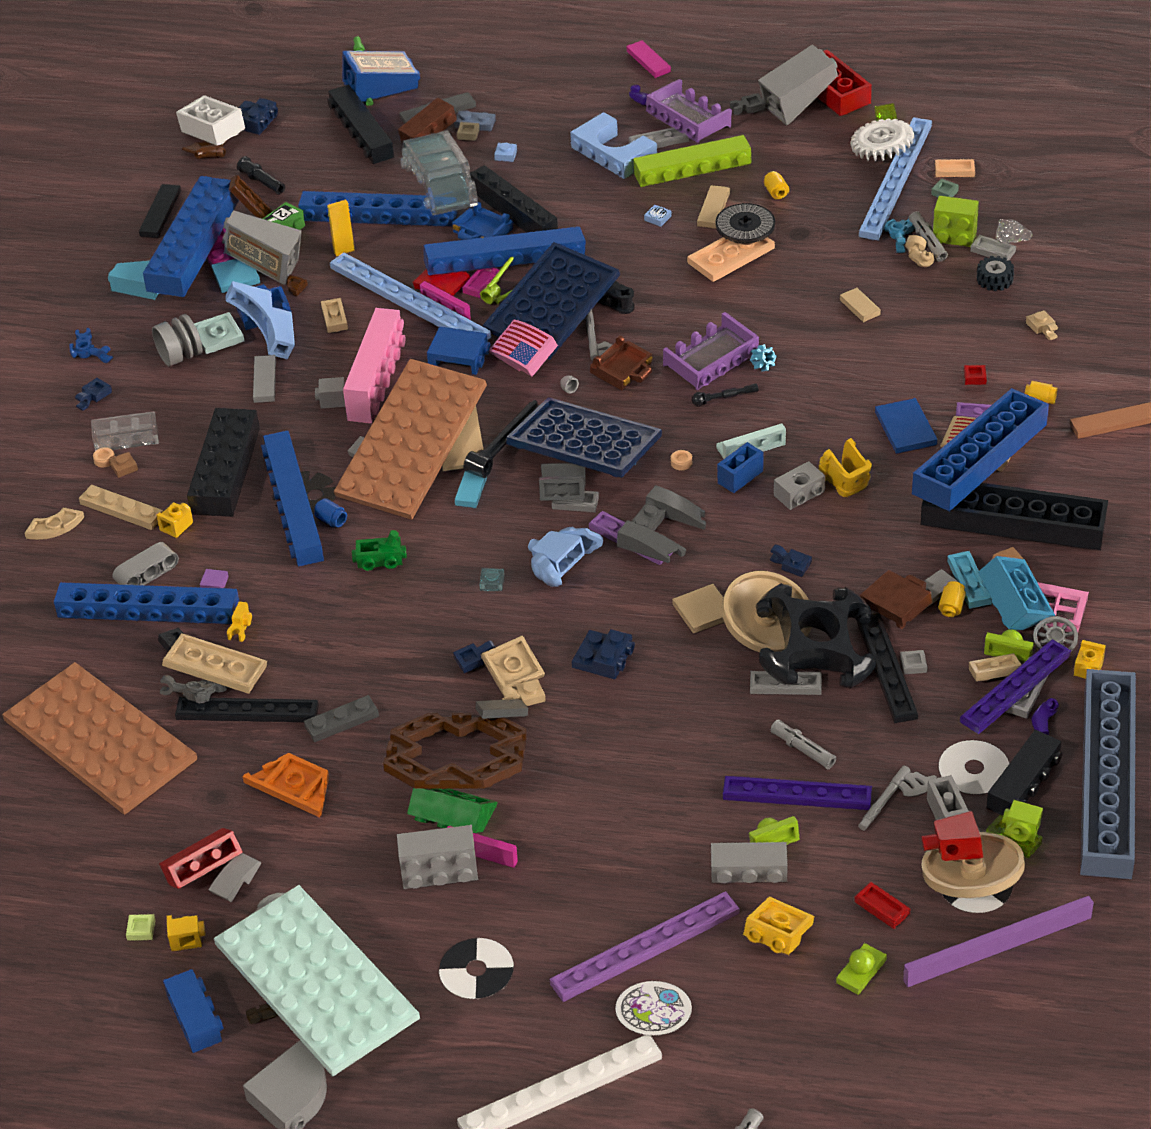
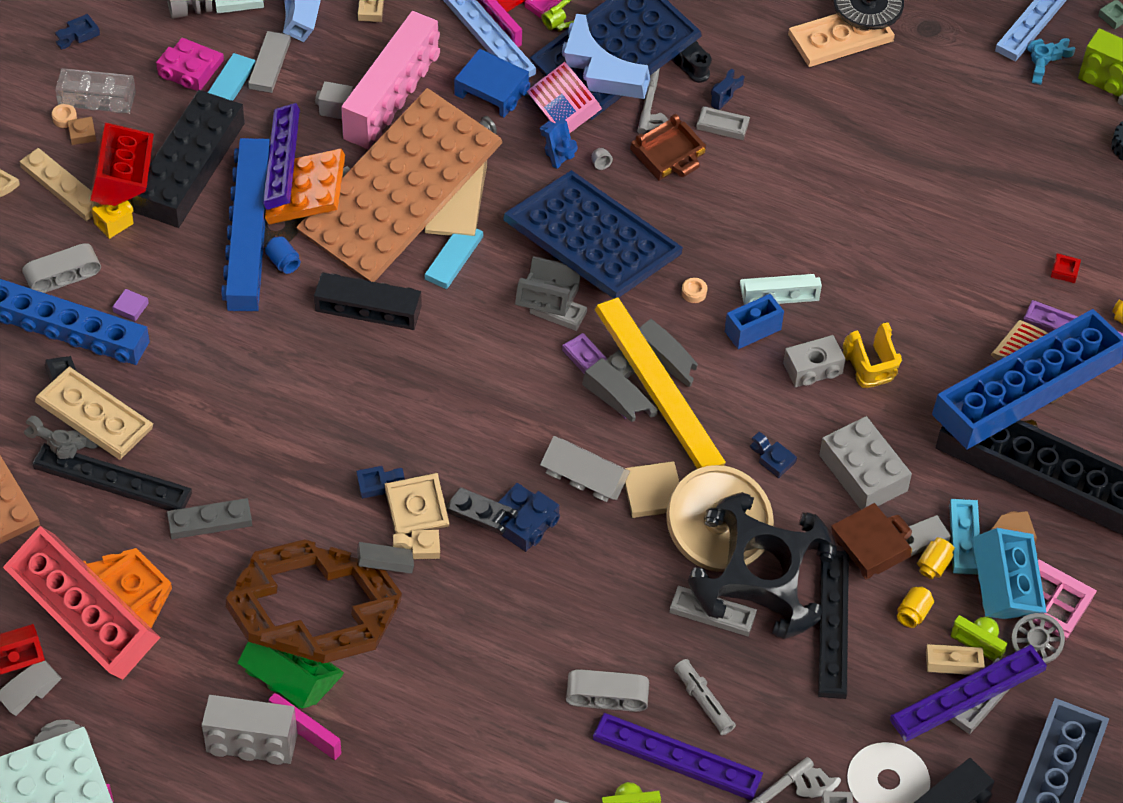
camera: 10 degrees right, 10 degrees up
(170, 476) = (121, 165): none -> red slope
(197, 395) = (189, 64): none -> dark pink plate
(238, 394) = (232, 77): none -> medium azure tile
(240, 620) = (140, 365): yellow plate -> none
(259, 800) = (81, 602): none -> coral brick
(303, 441) = (281, 156): none -> dark purple tile
(331, 458) = (314, 187): none -> orange plate
(379, 552) = (318, 320): green brick -> none
(419, 528) = (367, 301): none -> black brick
(481, 462) = (468, 236): black piece -> none
(492, 579) = (432, 387): clear light blue plate -> none
(532, 380) = (559, 143): none -> blue hips
(547, 315) = (602, 70): none -> light blue arch
(560, 552) = (515, 375): light blue torso -> none
(567, 655) = (479, 510): none -> black hinge
(642, 604) = (584, 469): none -> light grey brick
(651, 313) = (723, 91): none -> dark blue plate
(658, 337) = (723, 123): none -> light grey tile
(678, 527) = (659, 384): none -> yellow tile
(701, 398) = (743, 216): black piece -> none
(712, 354) = (775, 161): medium lavender window -> none
(722, 758) = (607, 690): none -> light grey beam
(763, 357) = (829, 183): medium azure gear -> none
(860, 304) = (965, 141): tan tile -> none
(869, 546) = (865, 463): none -> light grey brick
(906, 425) = (963, 314): blue tile -> none
(913, 662) = (866, 625): light grey tile -> none
(917, 222) = (1071, 65): light grey pin -> none
(917, 252) = (1056, 81): tan arm -> none
(948, 638) = (915, 607): none -> yellow brick
(1043, 714) = (986, 737): dark purple arm -> none
(1089, 657) = (1066, 680): yellow brick -> none

